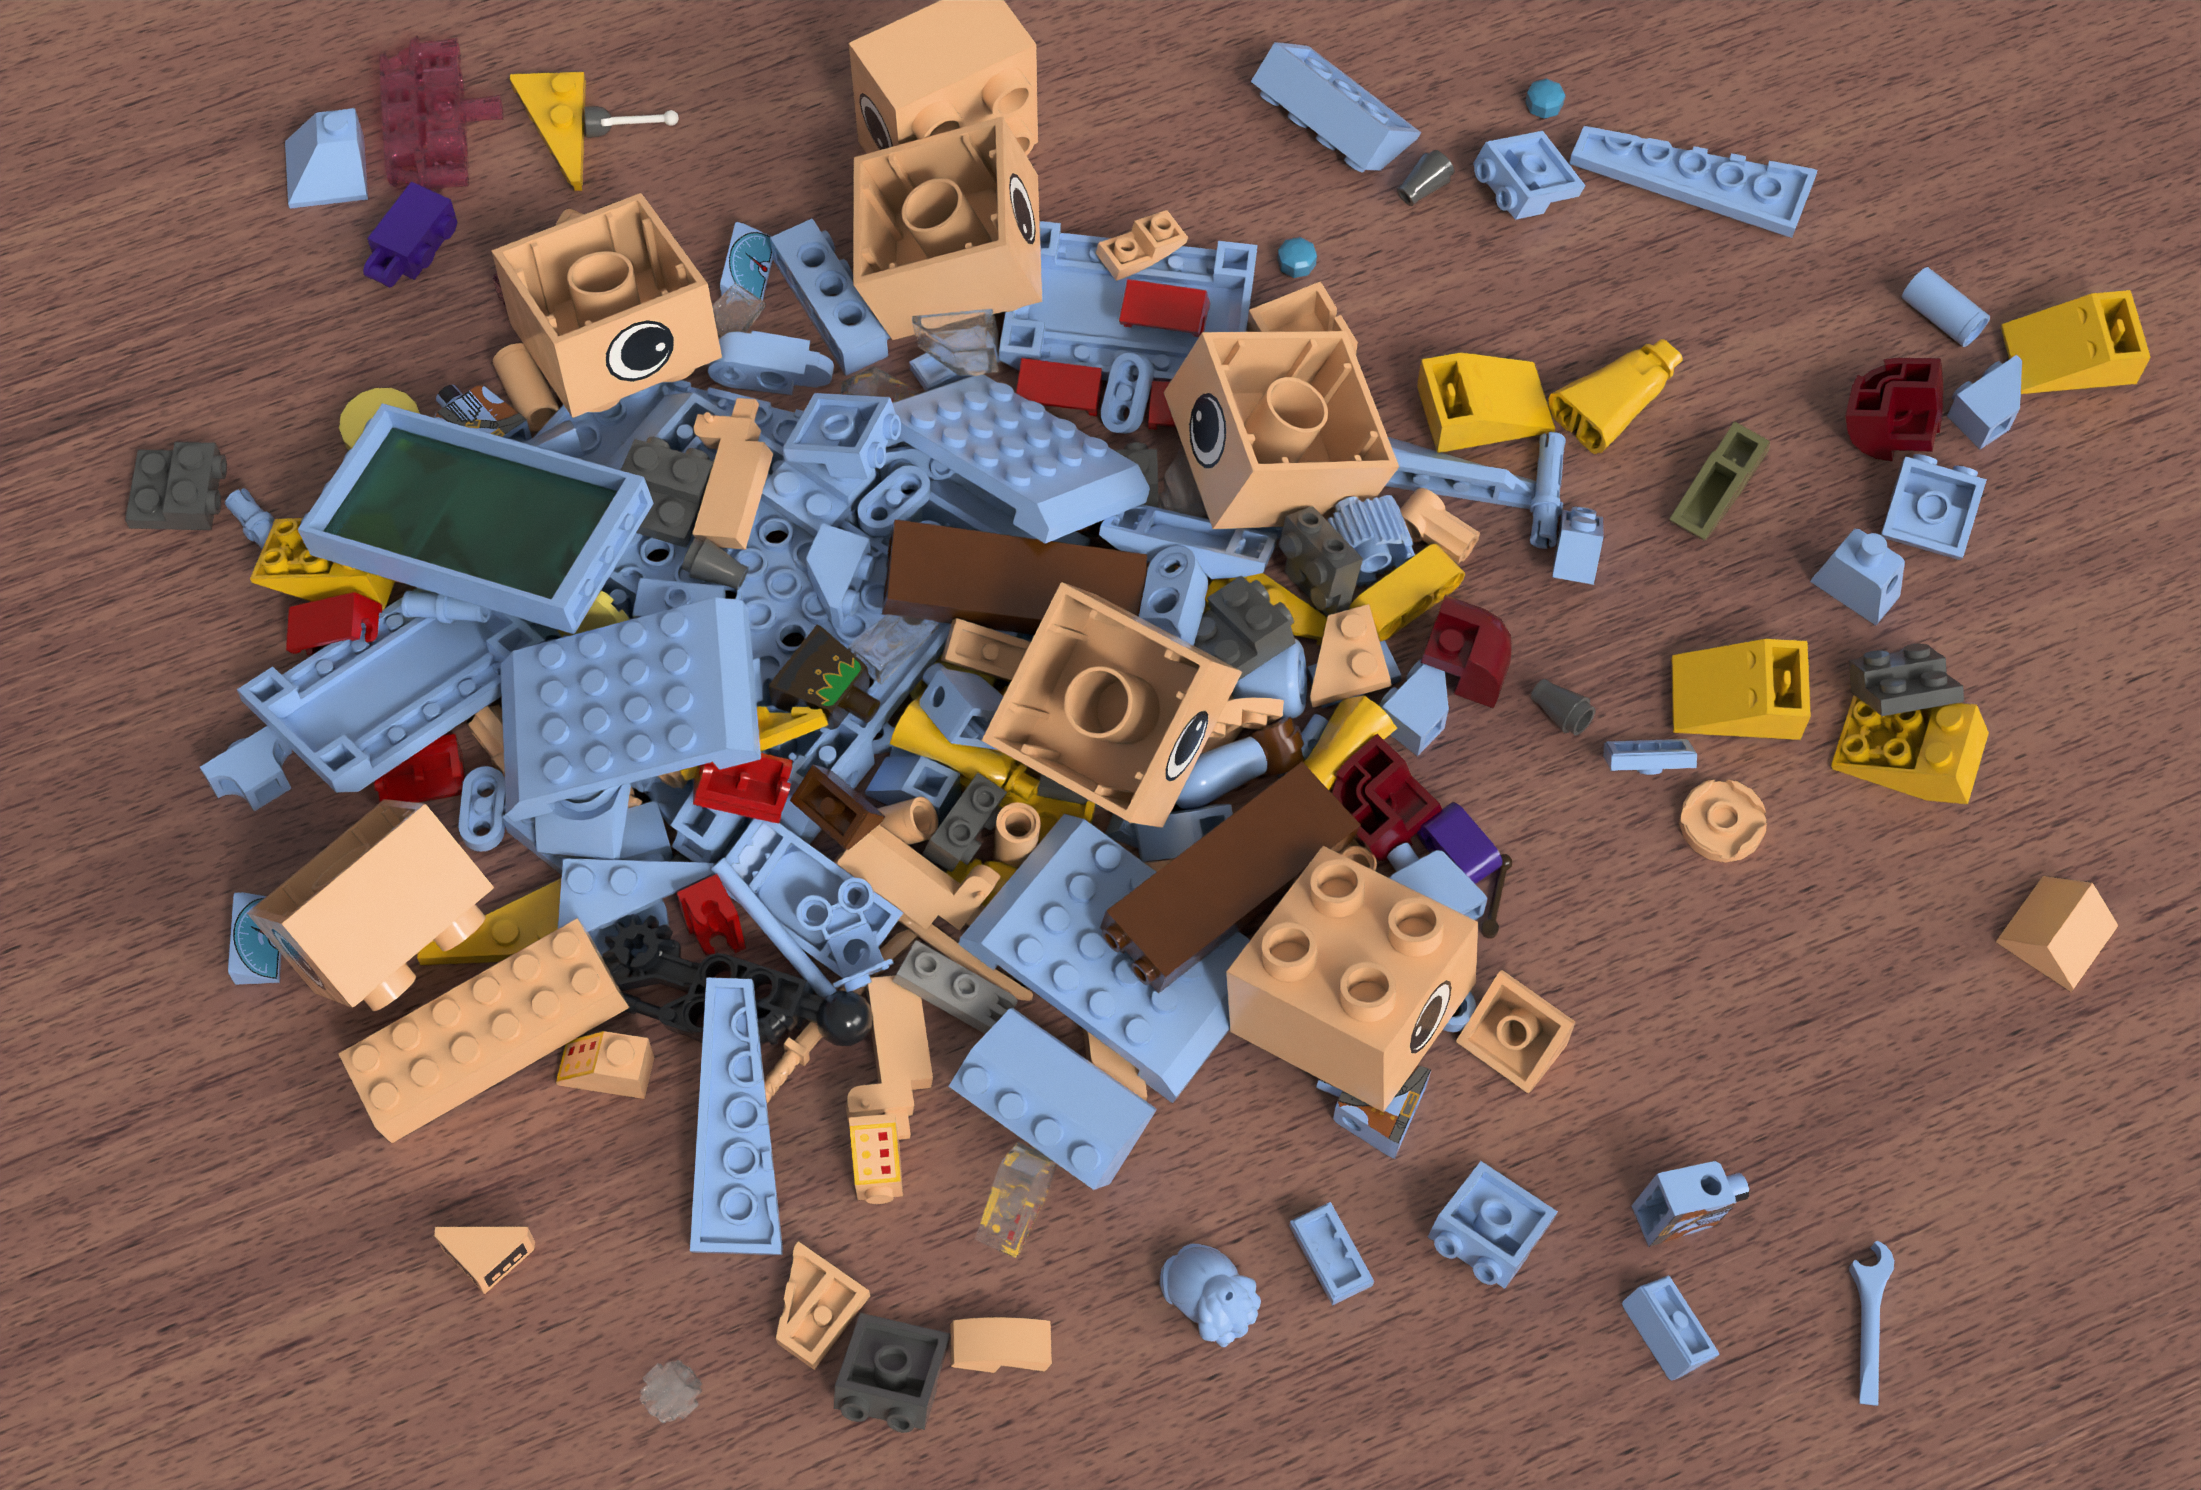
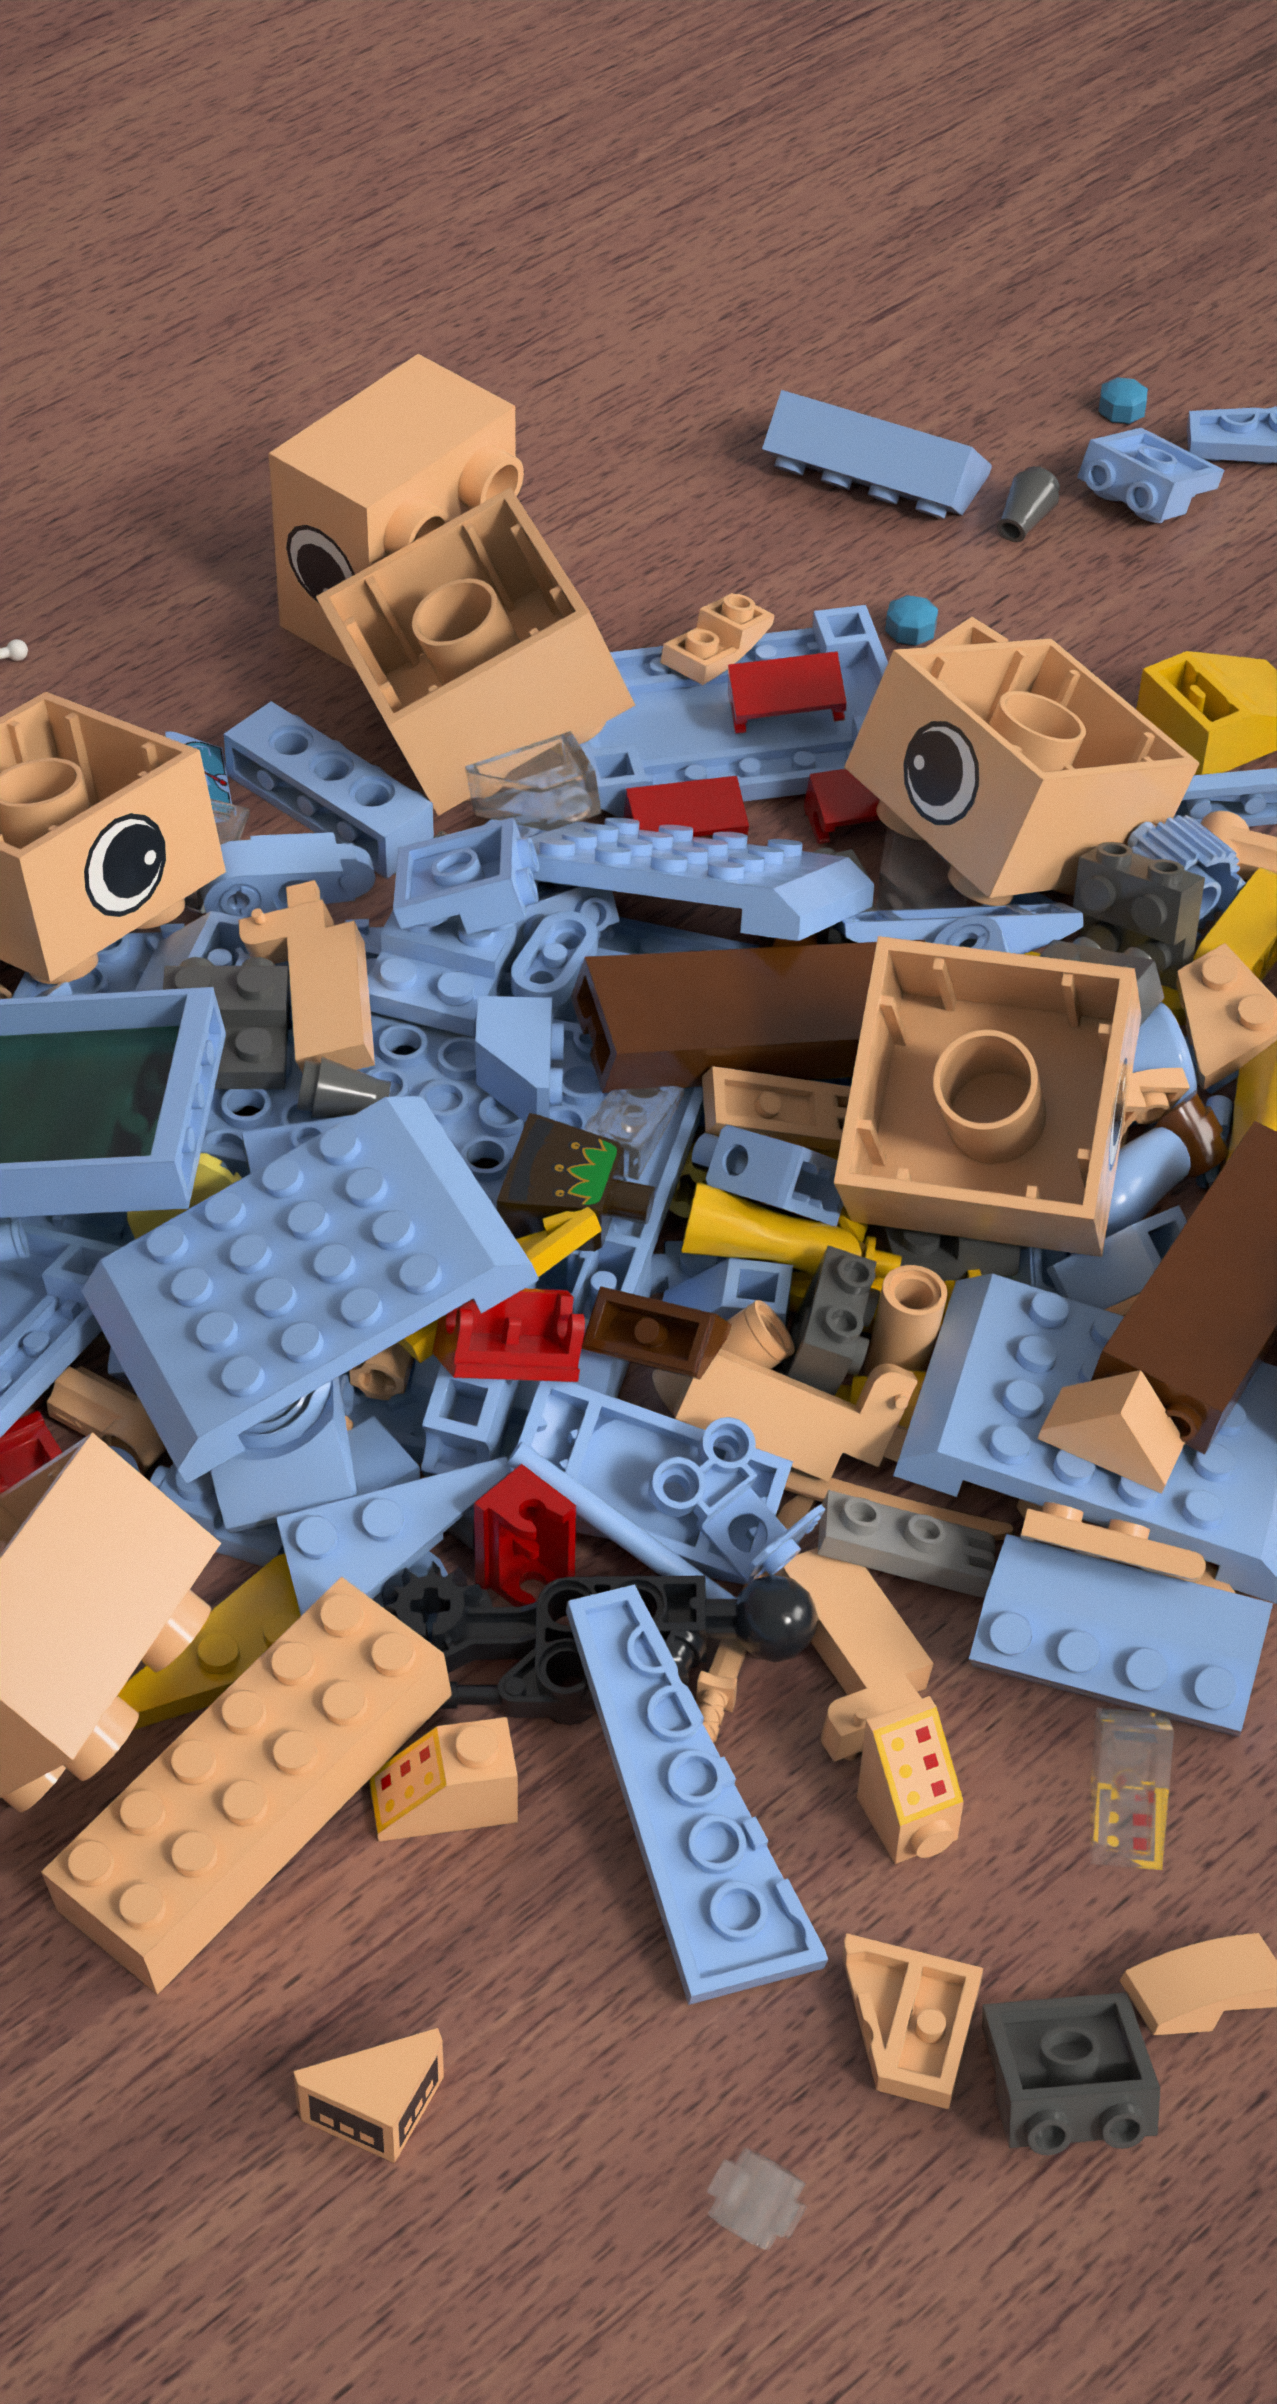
camera: 20 degrees left, 15 degrees down
(1072, 1040) = (1120, 1543): none -> light nougat hinge
(1100, 964) = (1117, 1427): none -> light nougat slope
(1125, 392) = (780, 801): light blue plate -> none

